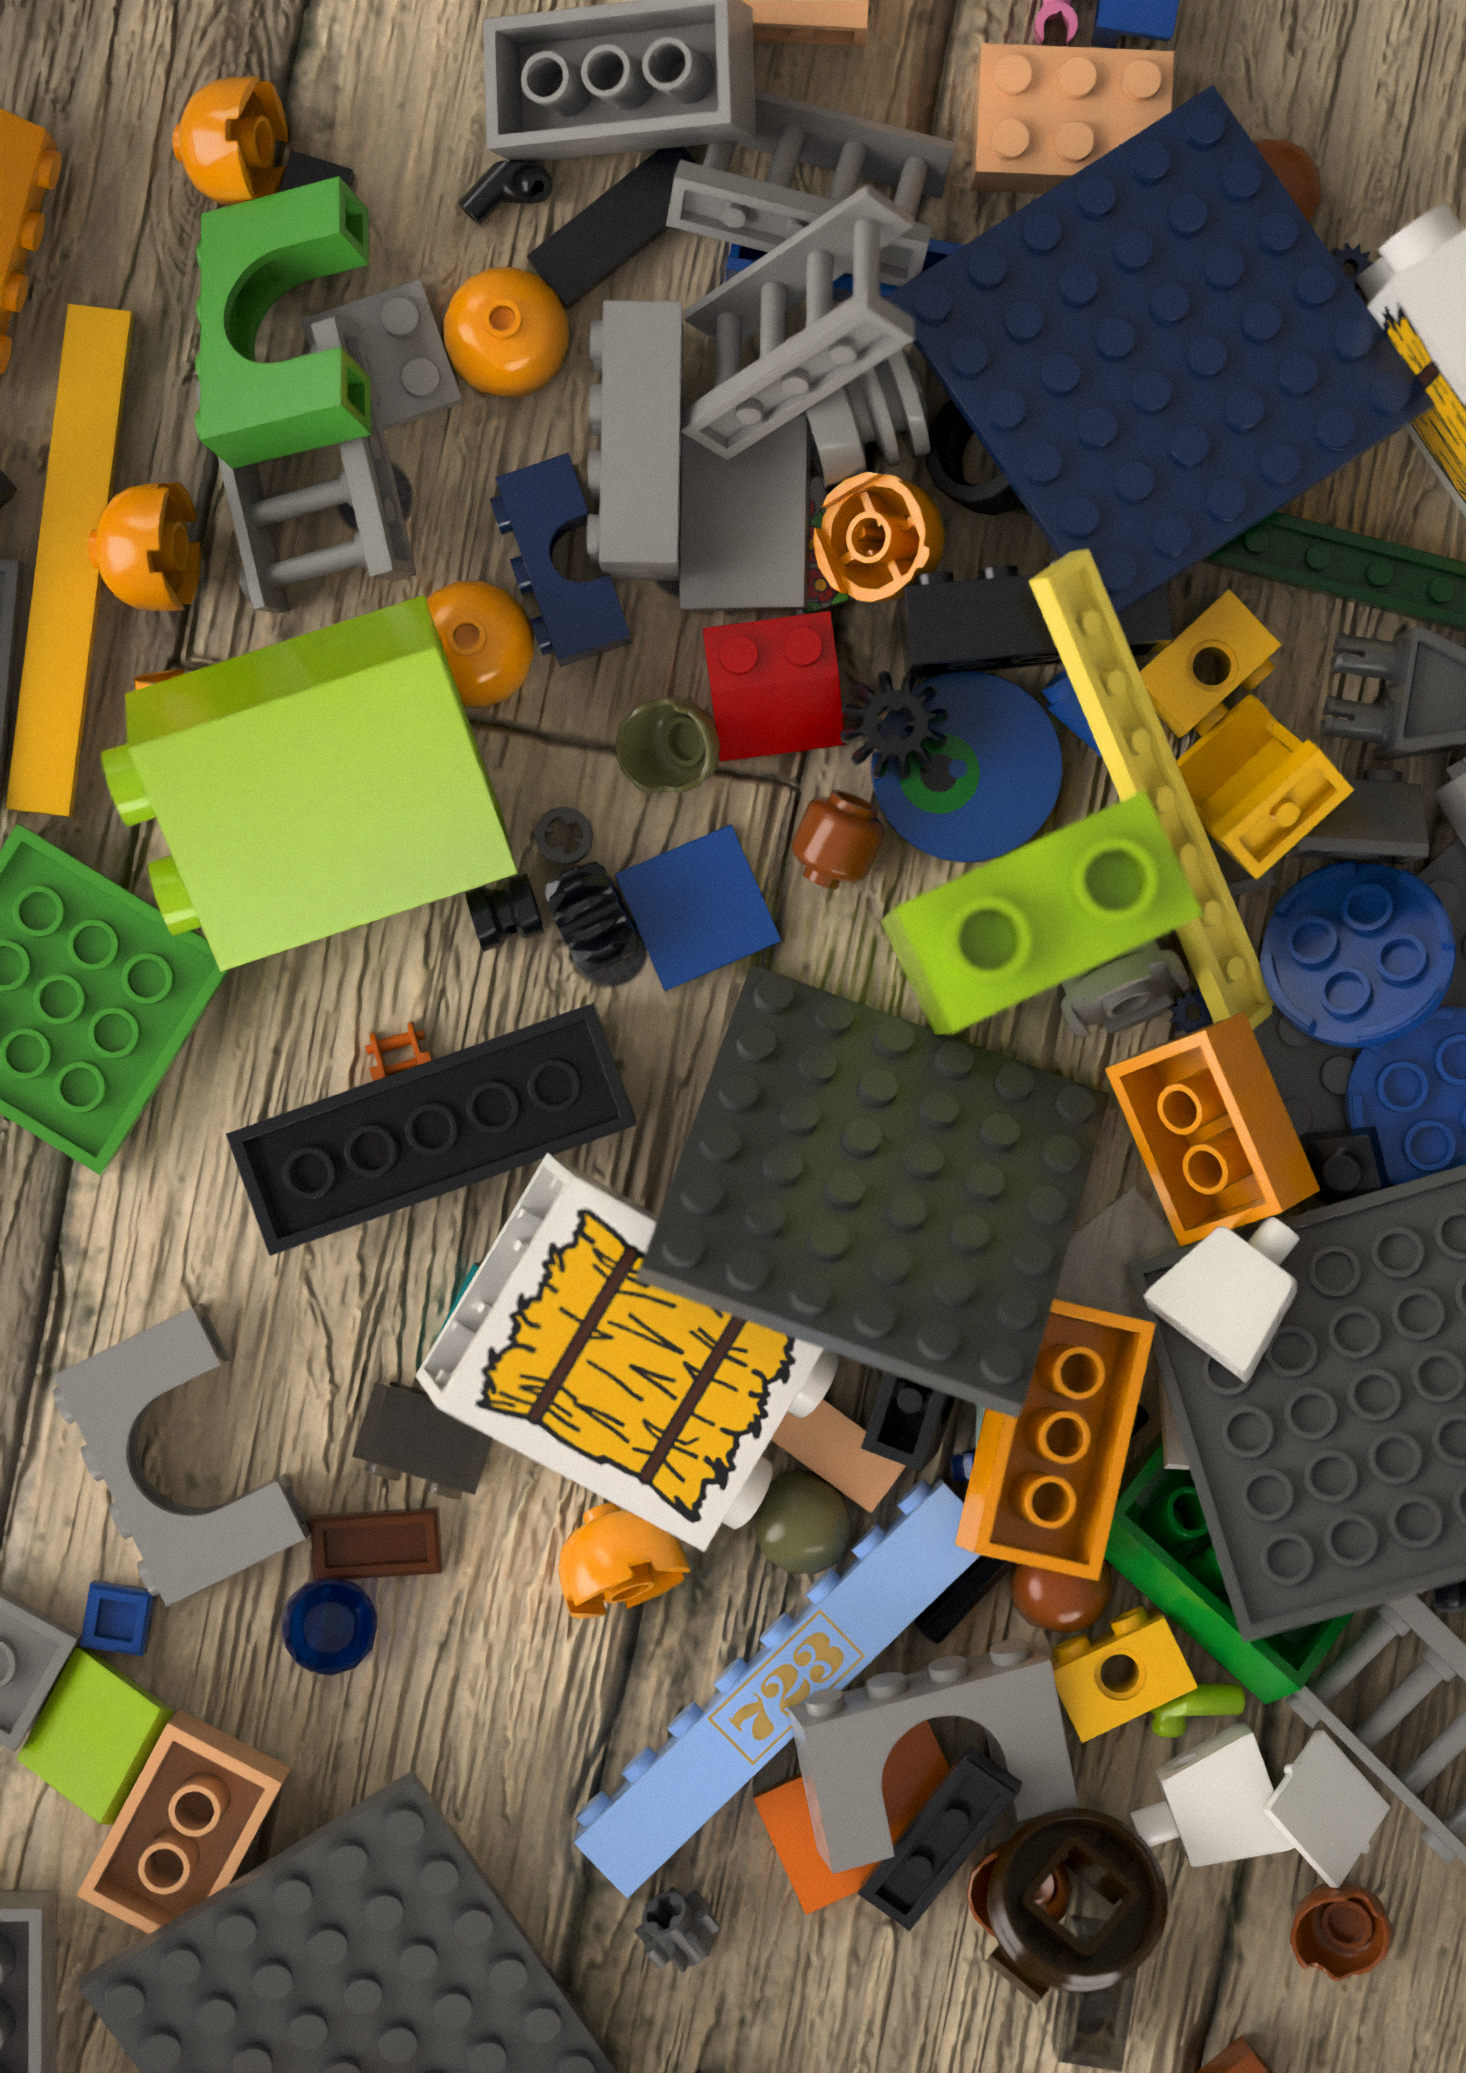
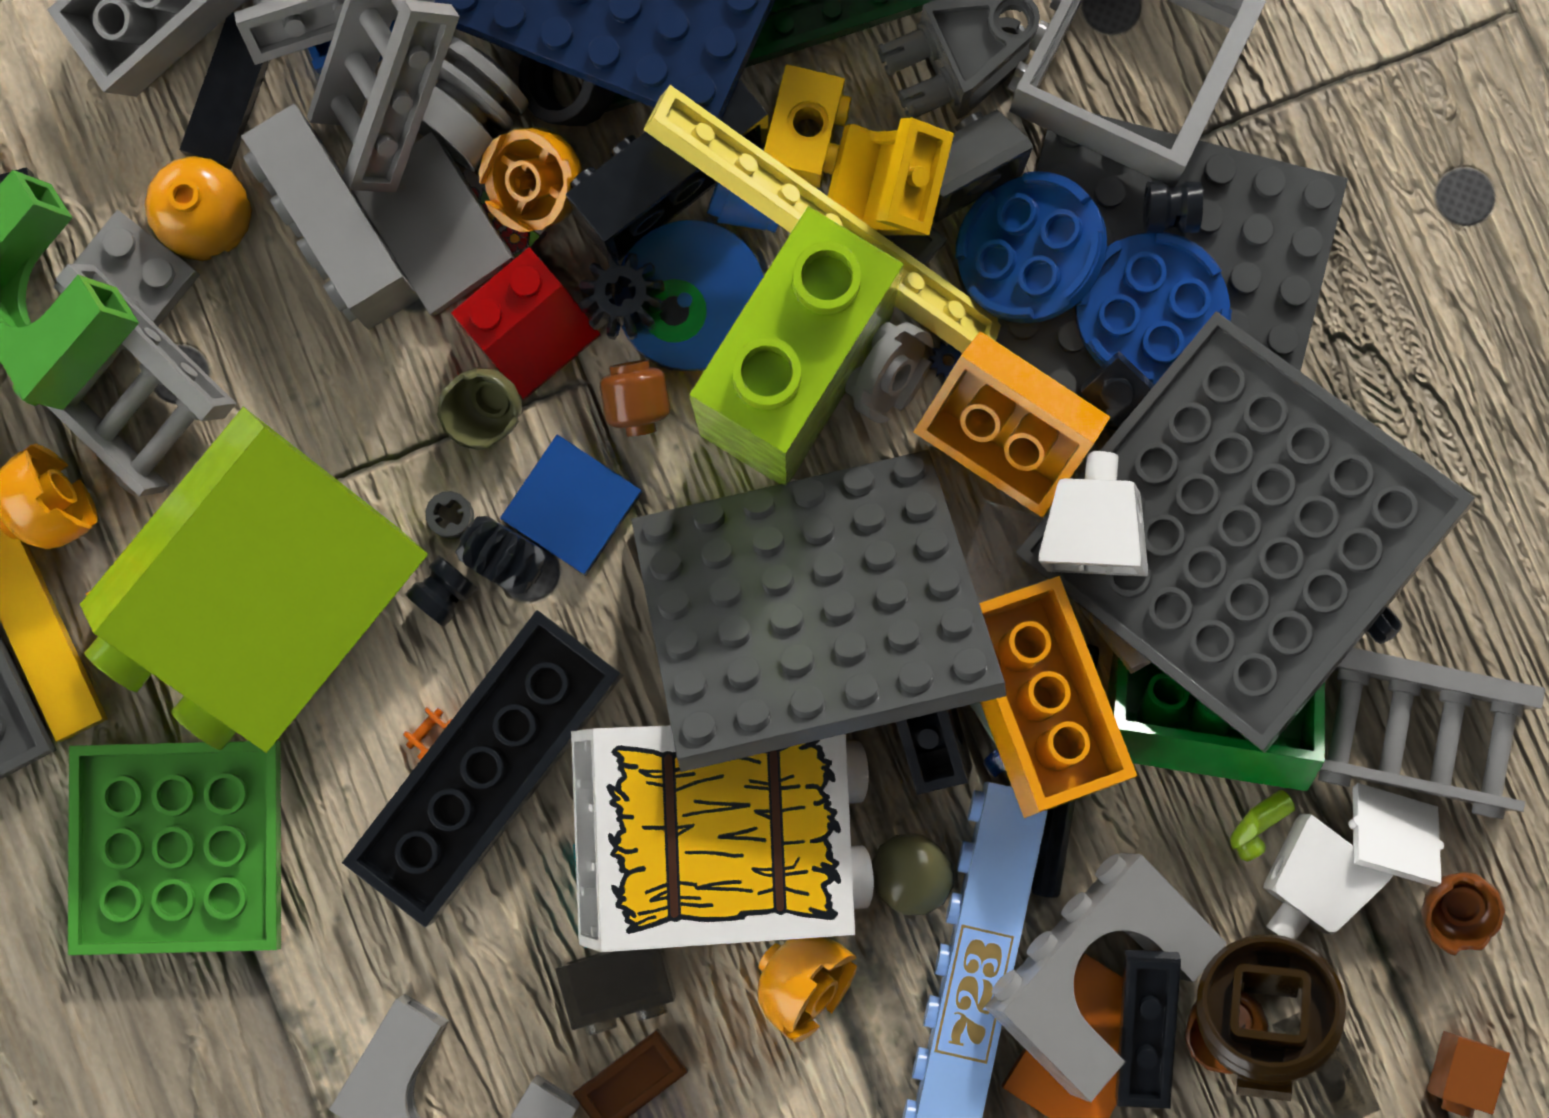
camera: 30 degrees left, 5 degrees down
(484, 640) = (312, 419): light orange cylinder -> none
(506, 183) = (136, 112): black arm -> none
(540, 508) = (294, 306): dark blue arch -> none
(831, 1447) = (899, 810): light nougat tile -> none
(1058, 1599) = (1118, 810): dark orange hair -> none
(1156, 1676) = (1221, 820): yellow brick -> none

